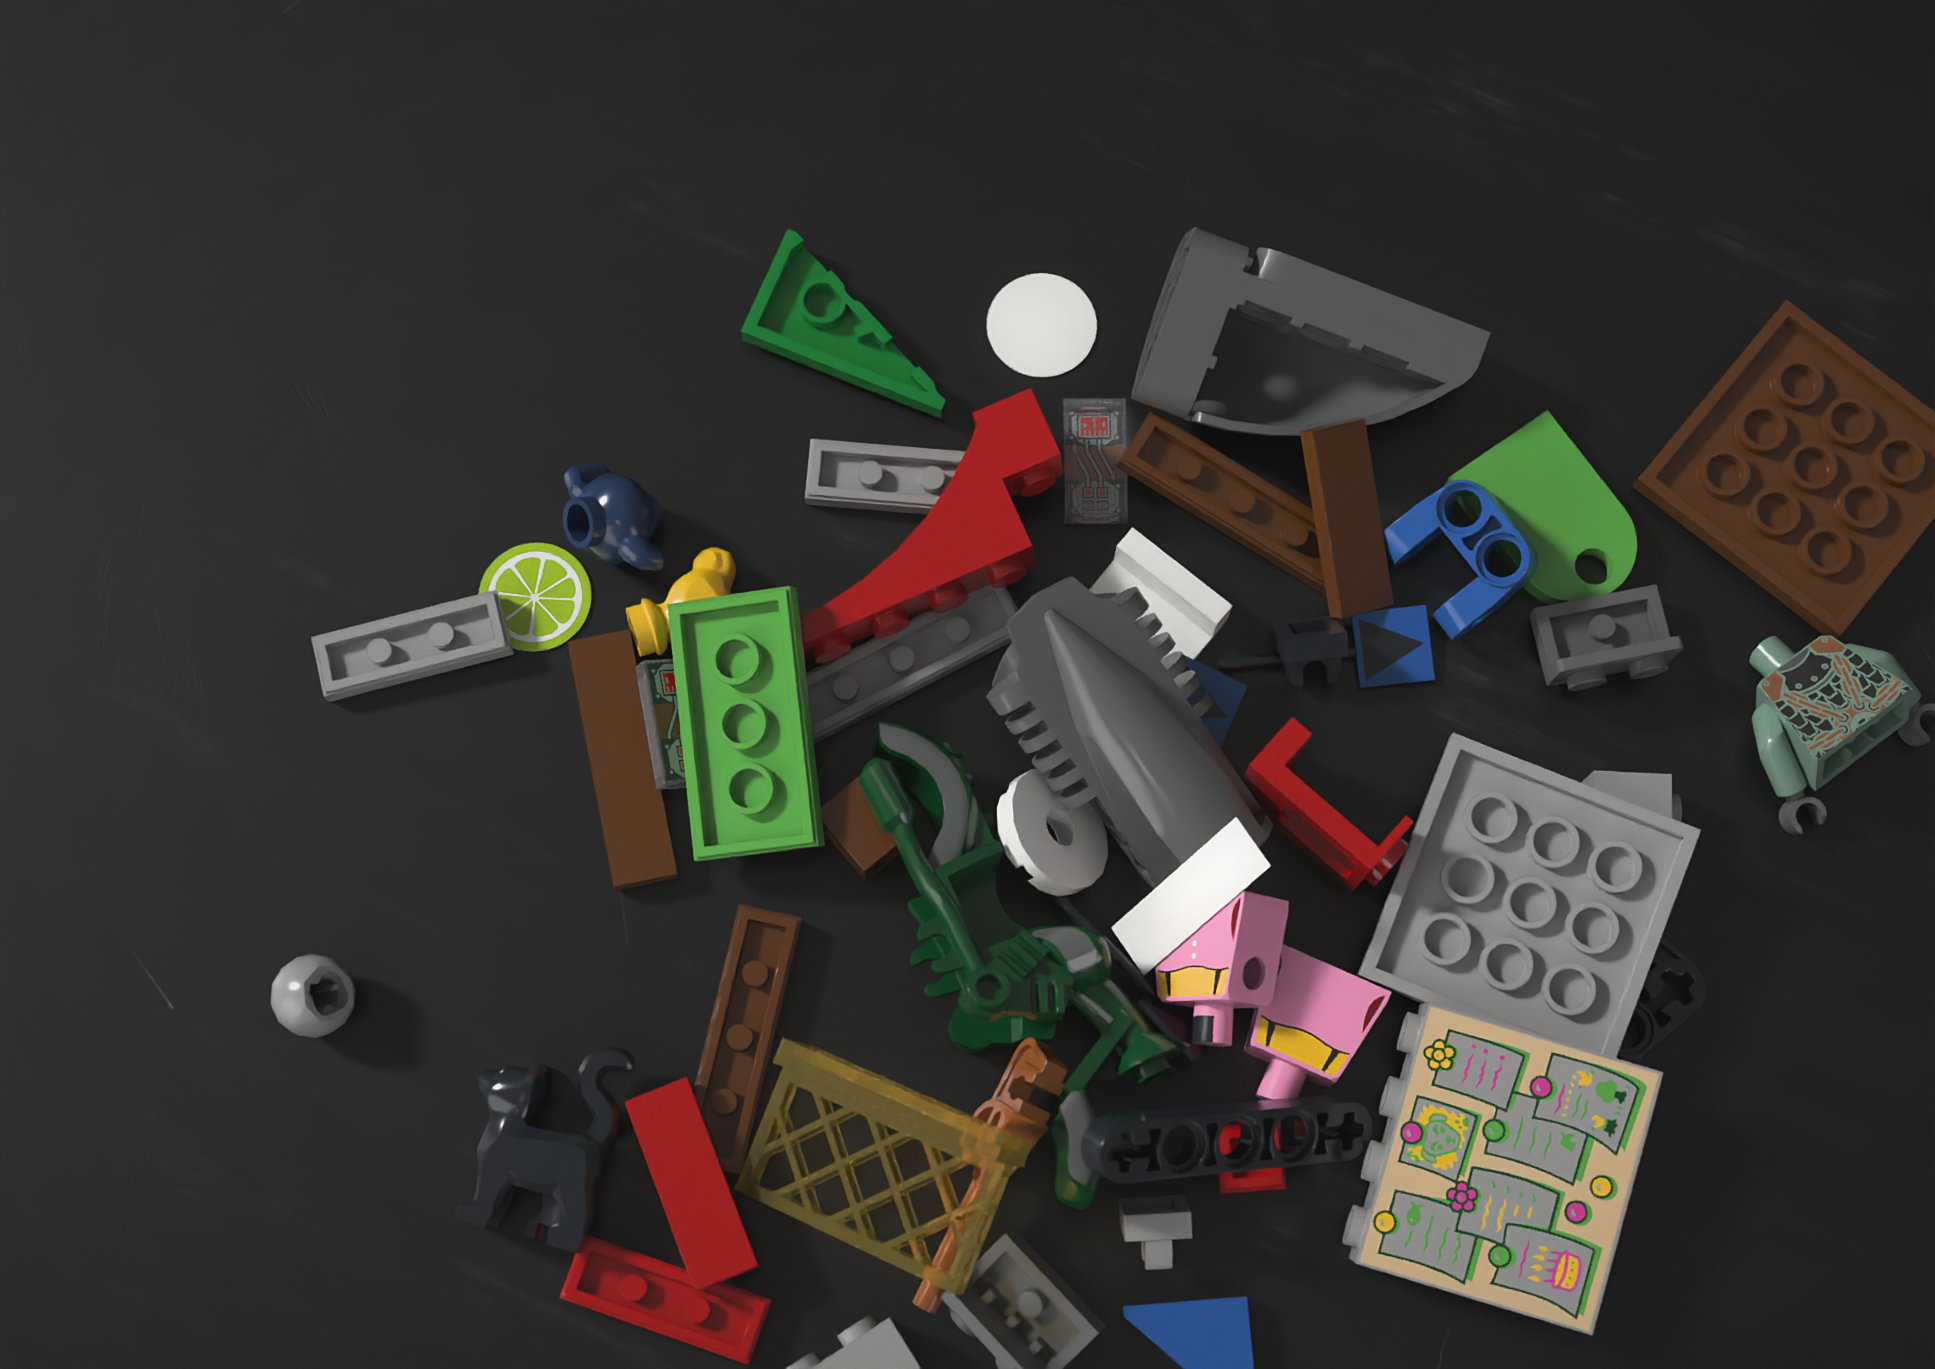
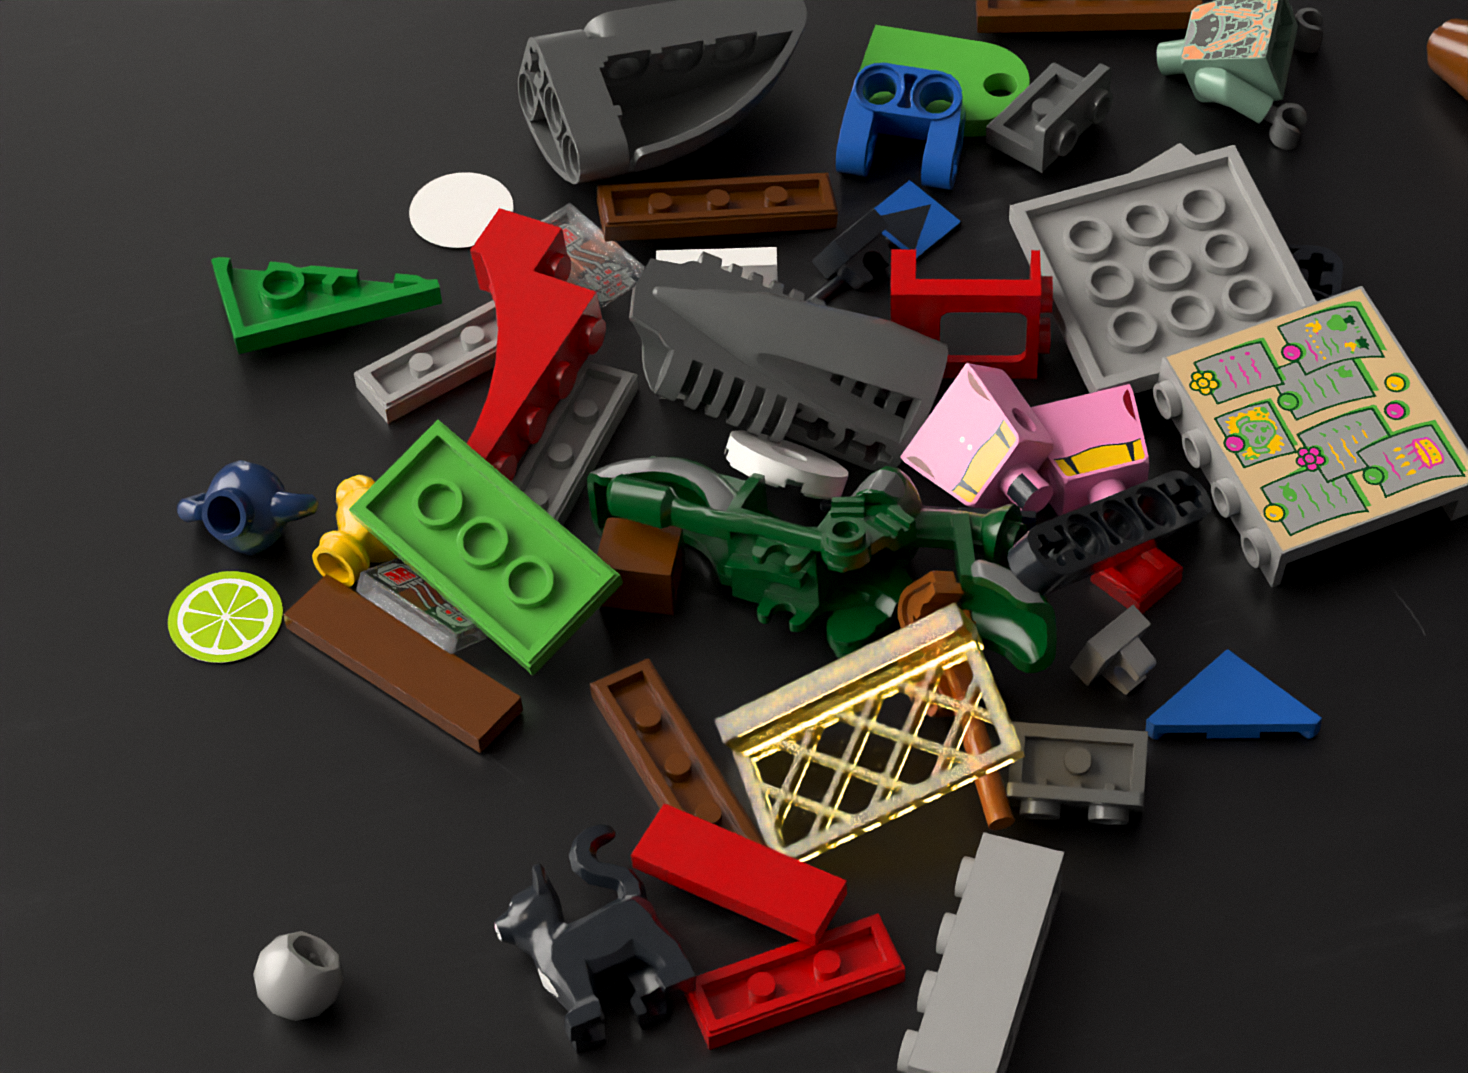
camera: 35 degrees left, 25 degrees down
(412, 645) = (153, 708): light grey tile -> none
(1190, 896) = (931, 405): white sticker -> none
(1347, 517) = (803, 151): reddish brown tile -> none

